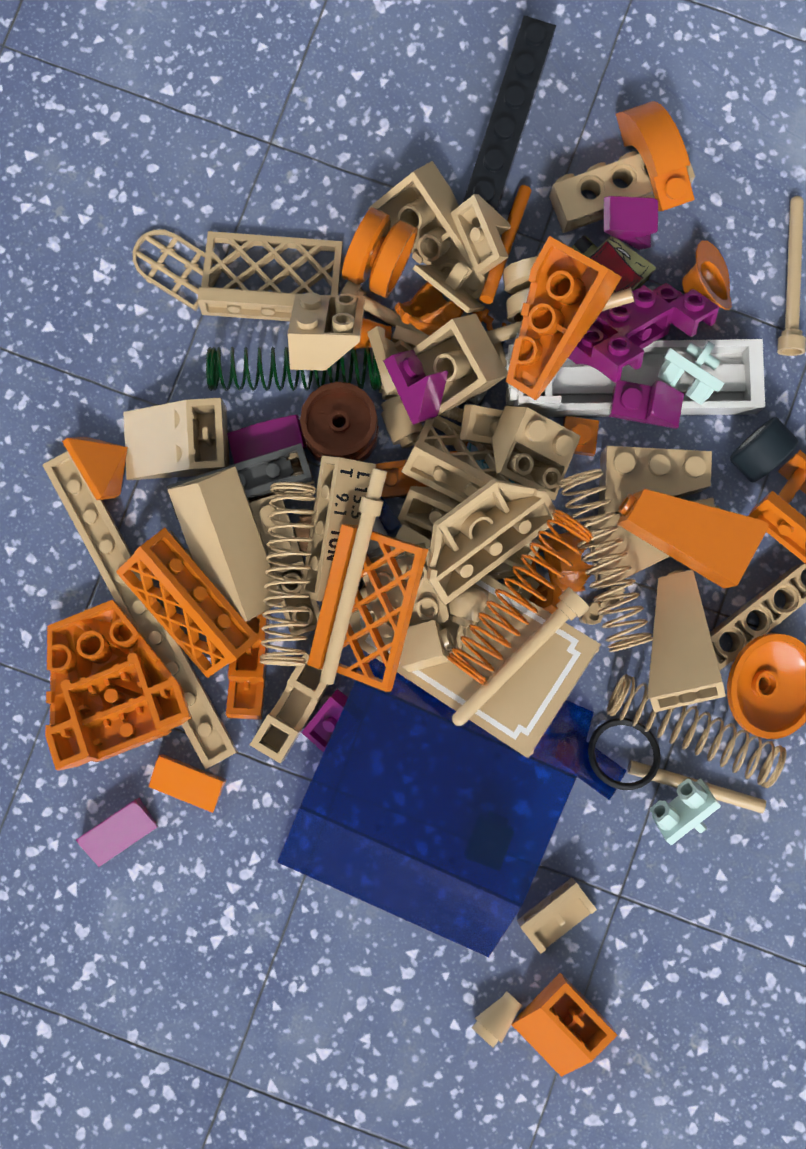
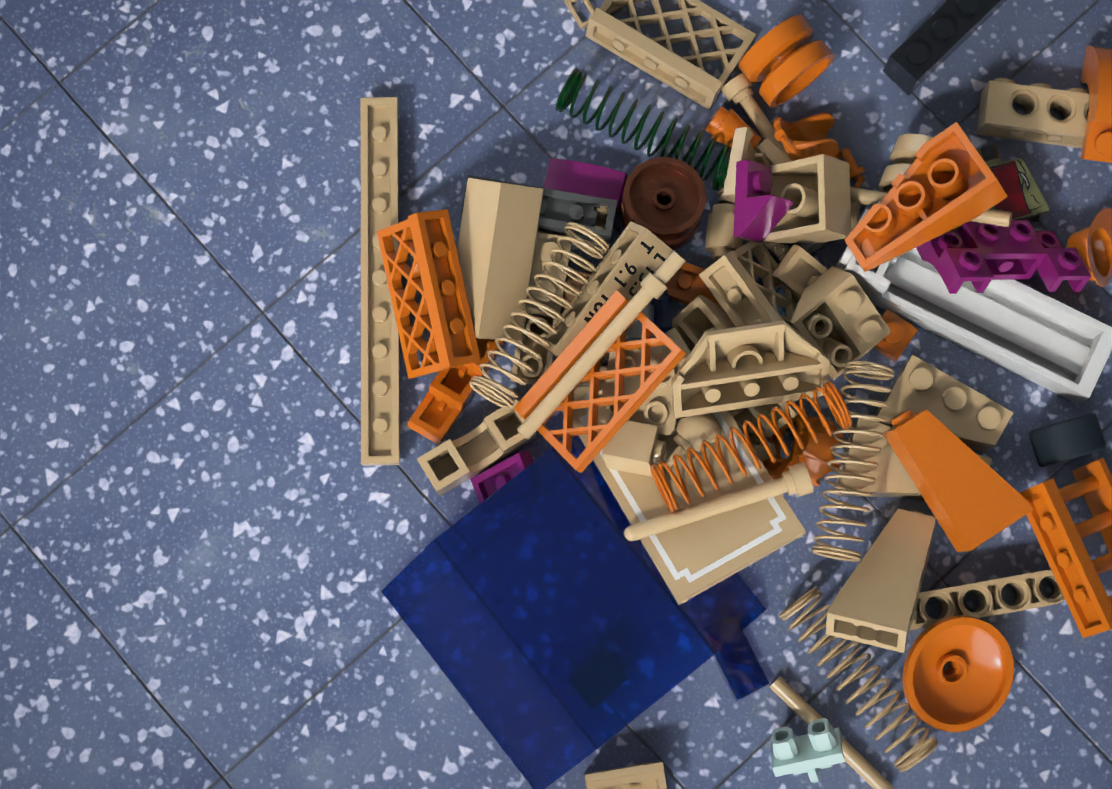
camera: 30 degrees right, 5 degrees down
(99, 464) = (414, 125): orange slope -> none
(106, 688) = (309, 338): orange wedge -> none
(117, 832) = (244, 480): slope -> none
(176, 439) = (499, 138): tan slope -> none
(187, 783) = (335, 469): orange slope -> none
(323, 329) = (694, 103): tan slope -> none
(427, 203) = (858, 73): tan wedge -> none
(451, 285) = (840, 125): tan piece -> none
(480, 233) = (894, 91): tan slope -> none
(508, 237) = (913, 115): orange bar -> none
(591, 617) = (812, 514): tan piece -> none
(607, 780) = (748, 684): black tyre -> none
(631, 219) = (1048, 152): magenta slope -> none
(647, 404) = (973, 335): magenta slope -> none
(704, 383) = (1020, 311): light aqua hips -> none

